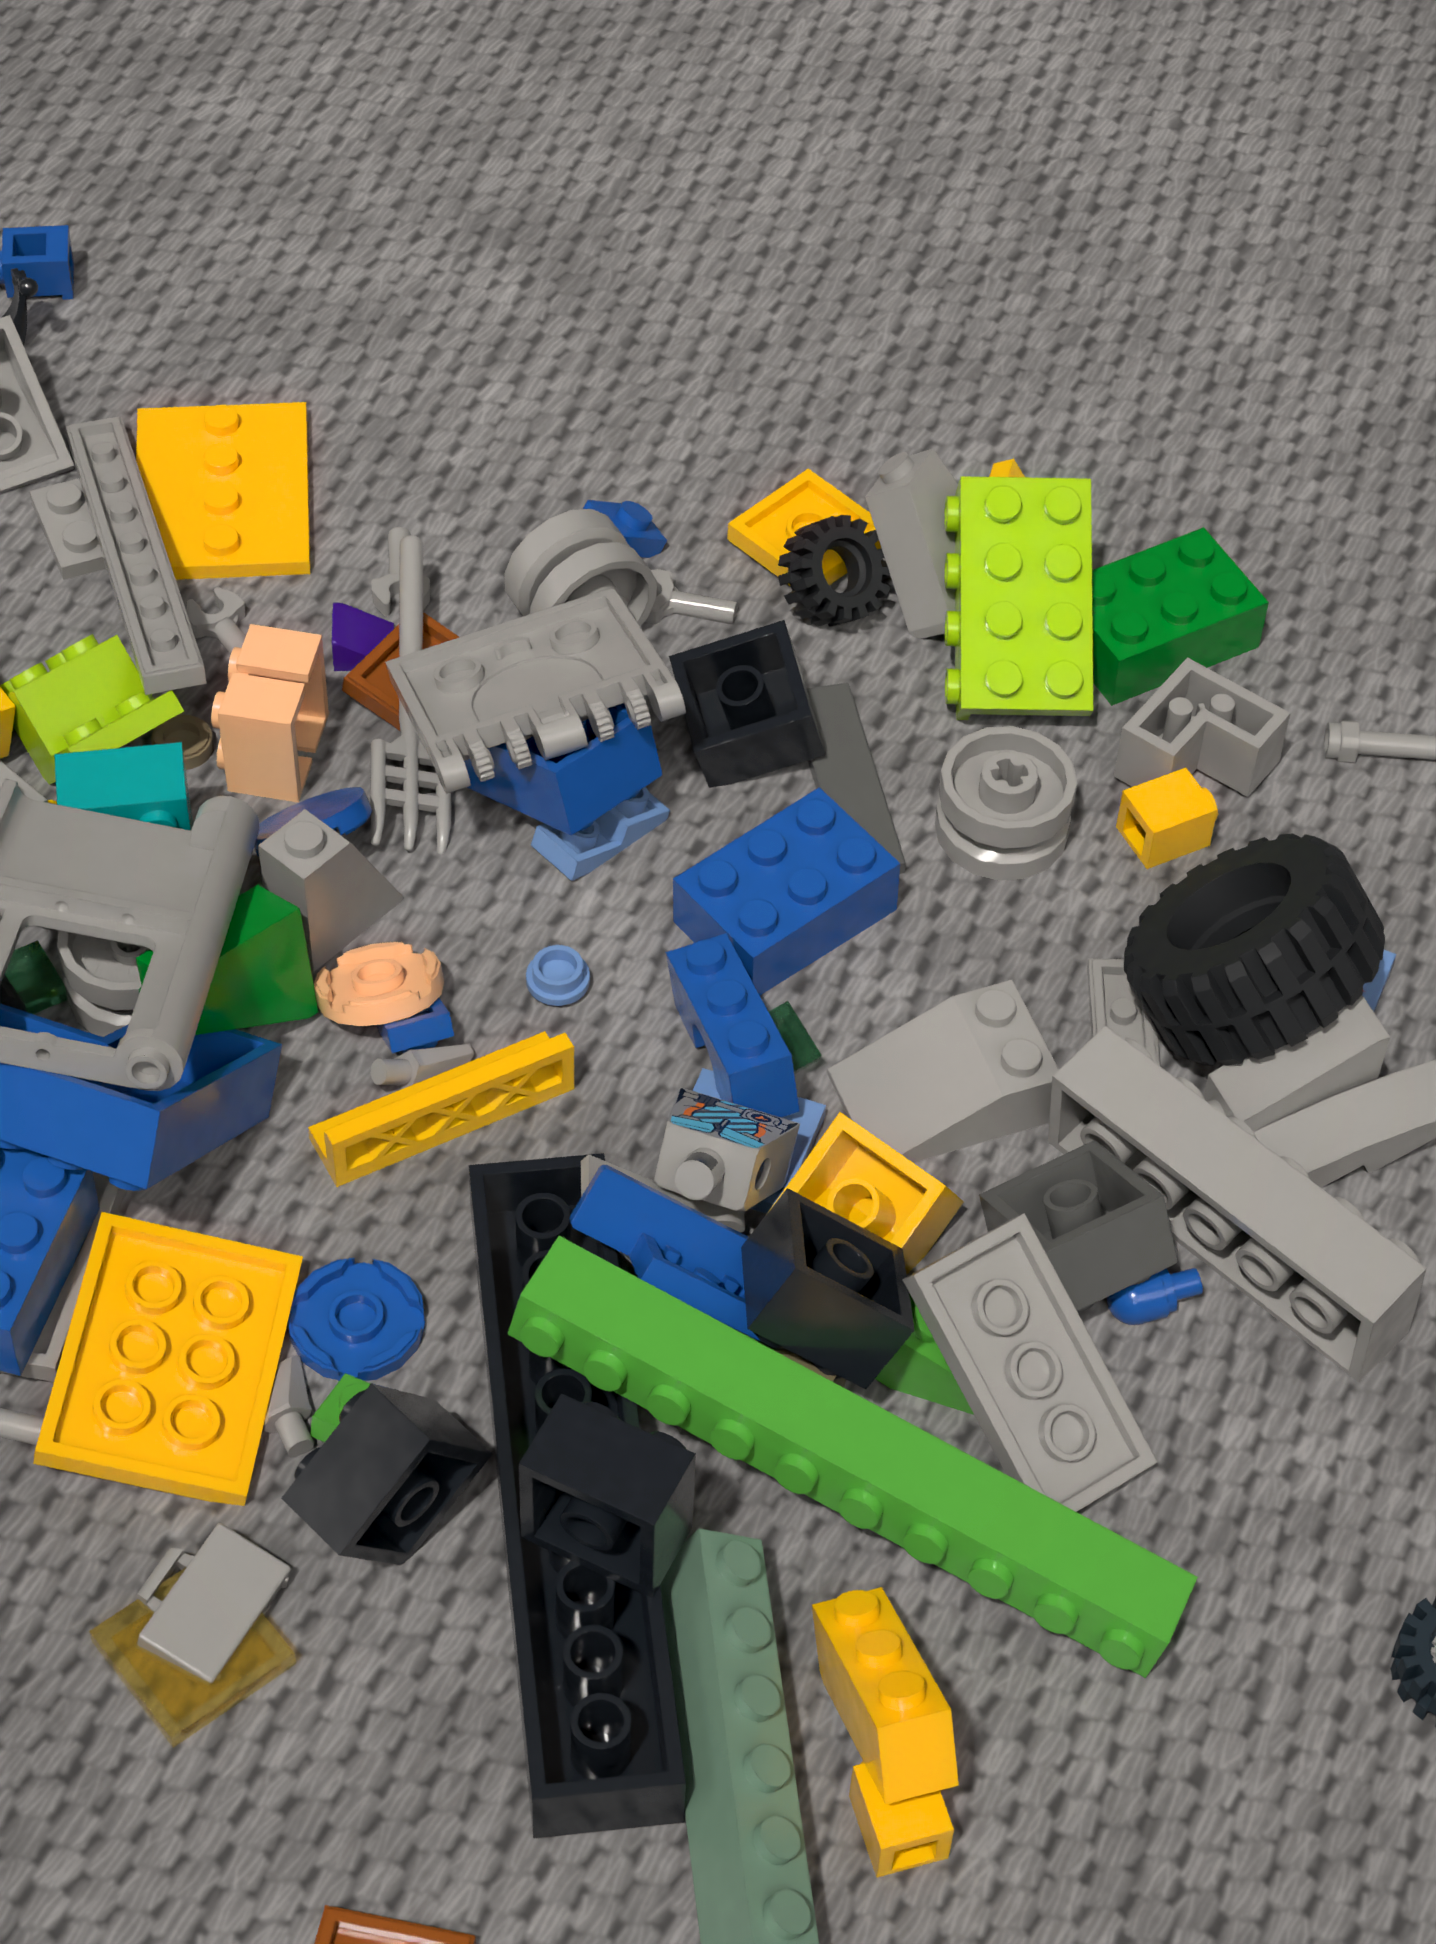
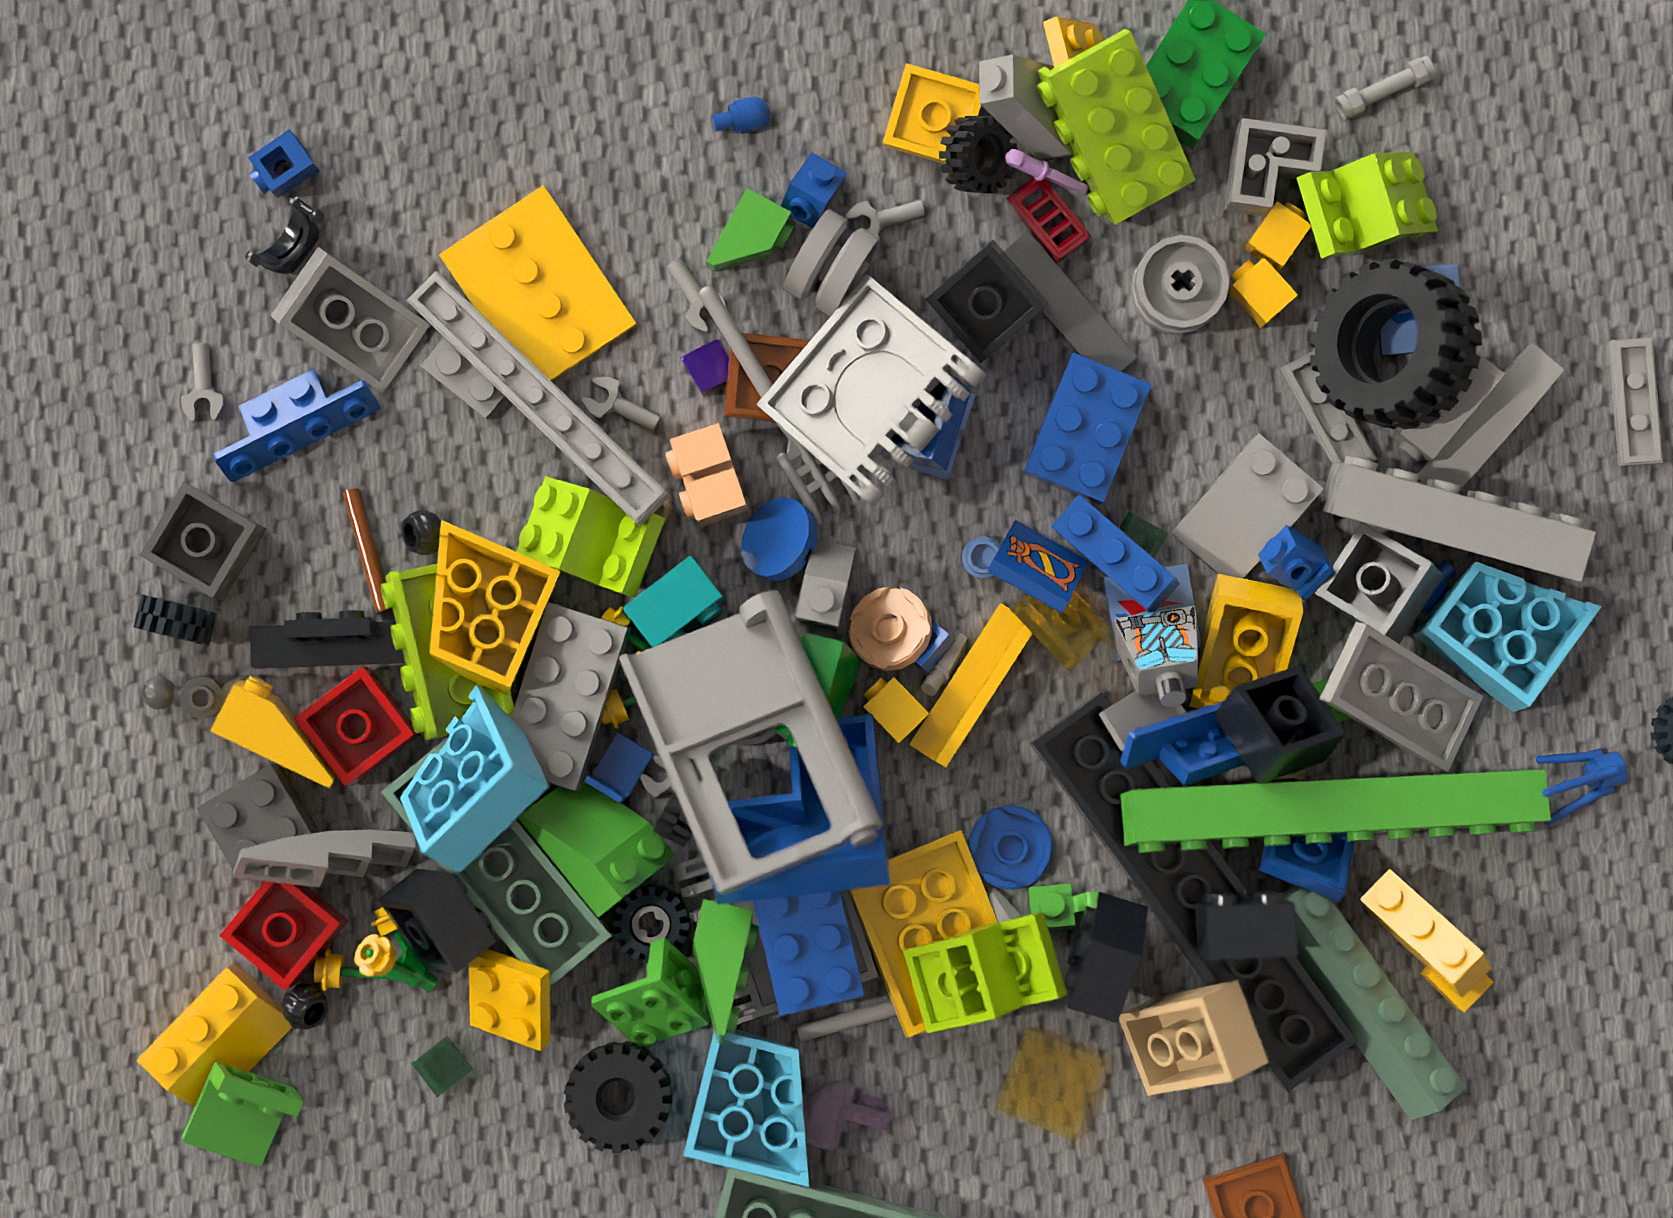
camera: 25 degrees left, 35 degrees up
(200, 1402) = (985, 972): none -> lime bracket
(210, 1602) = (1046, 1057): light grey piece -> none
(317, 1073) = (894, 708): none -> yellow brick
(438, 1638) = (1193, 1038): none -> tan brick
(488, 533) = (751, 232): none -> bright green slope
(583, 443) = (744, 115): none -> blue cylinder
(608, 1067) = (1064, 634): none -> clear yellow tile
(619, 996) = (1038, 566): none -> blue tile
(779, 1526) = (1311, 866): none -> blue tile
(886, 716) = (1068, 246): none -> dark red slope
(903, 625) = (1041, 170): none -> lavender piece
(998, 1156) = (1296, 561): none -> blue brick
(1111, 864) = (1260, 291): none -> yellow brick
(1230, 1382) = (1504, 632): none -> medium azure wedge
(1286, 1645) = (1602, 773): none -> blue plant
(1311, 797) = (1368, 204): none -> lime bracket

